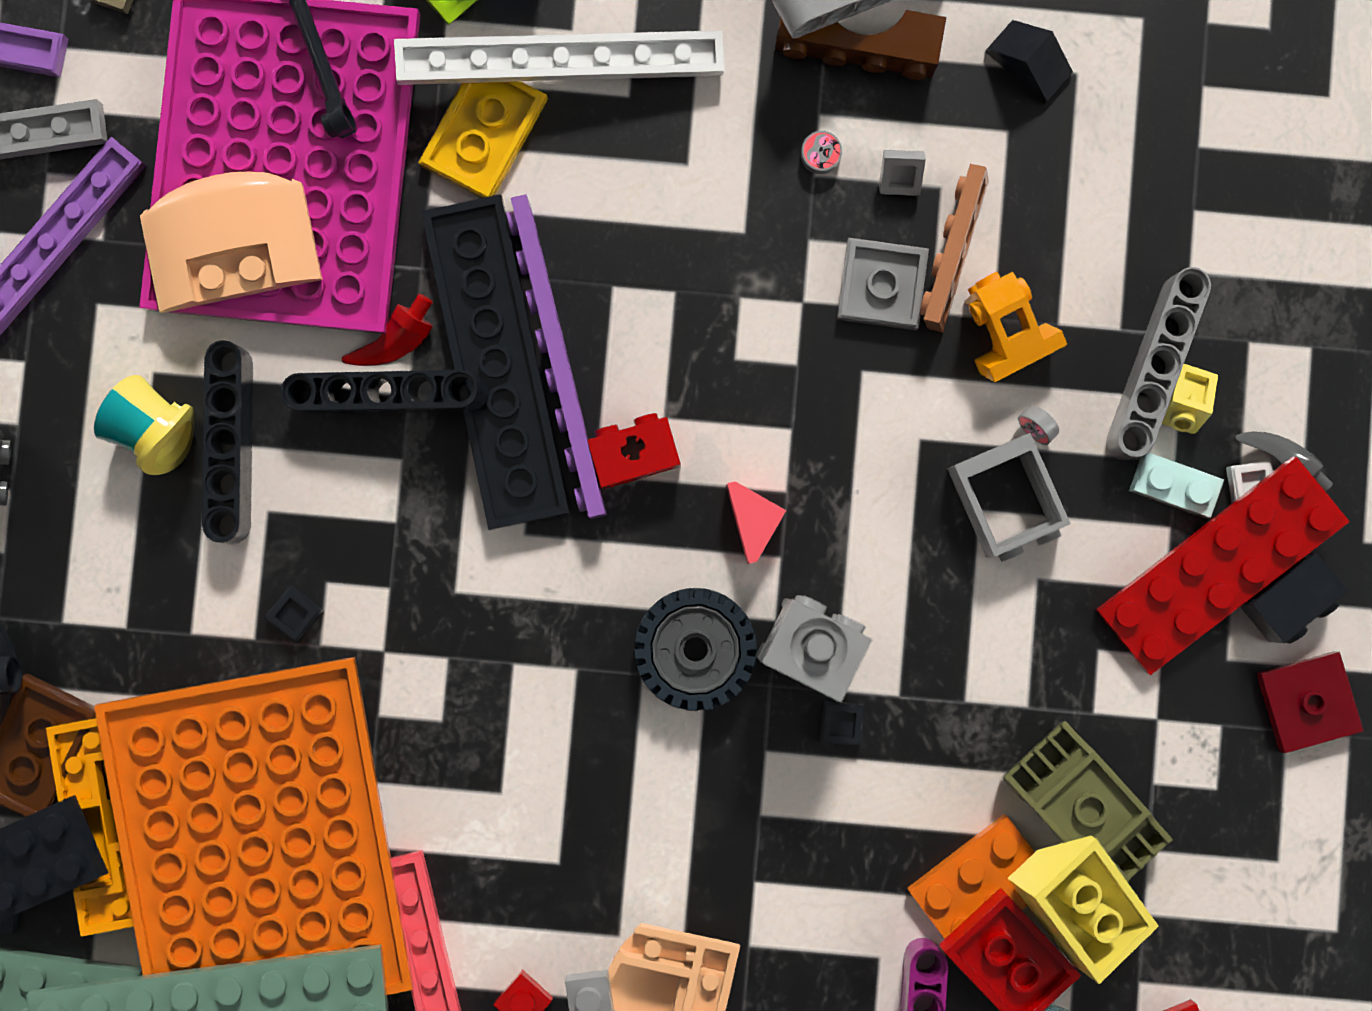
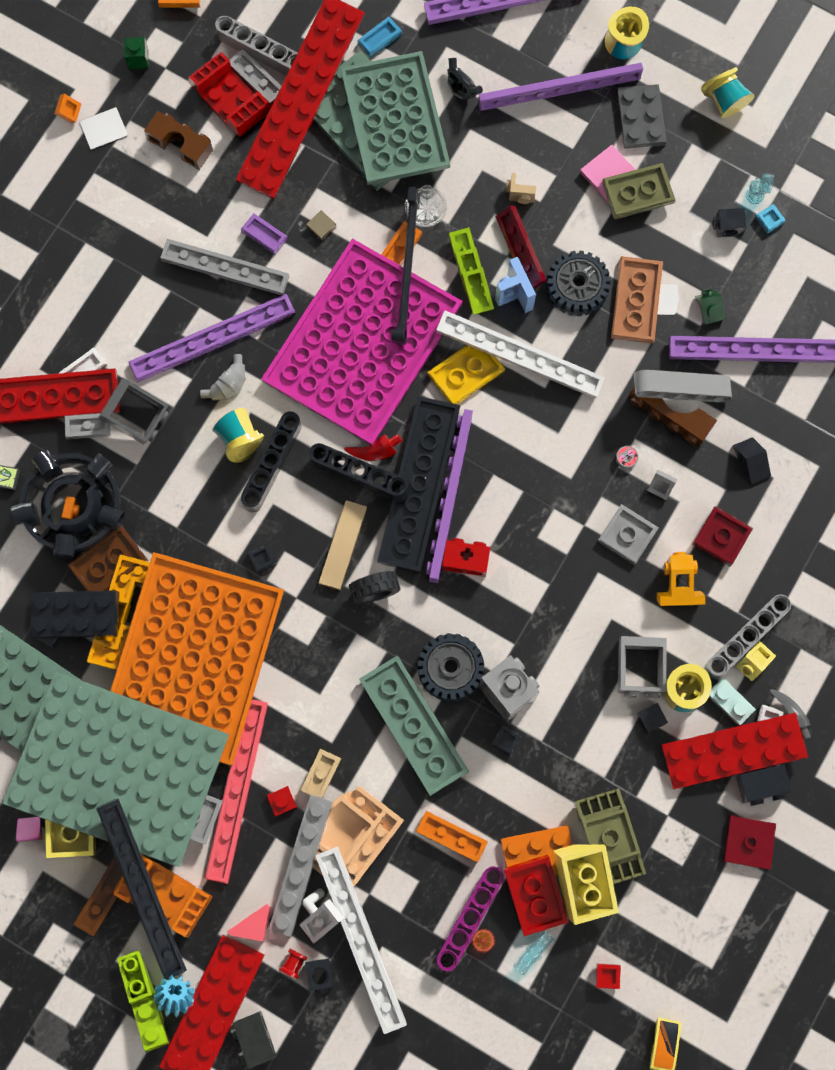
camera: 30 degrees right, 10 degrees down
(88, 340) = (228, 383): none -> light grey piece
(229, 239) = (320, 367): light nougat slope -> none
(418, 527) = (343, 545): none -> tan tile
(504, 579) = (374, 587): none -> black tyre
(566, 929) = (321, 774): none -> tan plate
(680, 774) = (413, 725): none -> sand green plate
(754, 518) = (510, 618): coral slope -> none
(828, 926) = (452, 836): none -> orange plate
(958, 232) = (675, 529): nougat plate -> none
(1039, 424) = (673, 638): light grey tile -> none
(1040, 213) = (722, 536): none -> dark red plate
(1062, 573) = (652, 718): none -> black tile
(1104, 500) = (687, 688): none -> light yellow hat

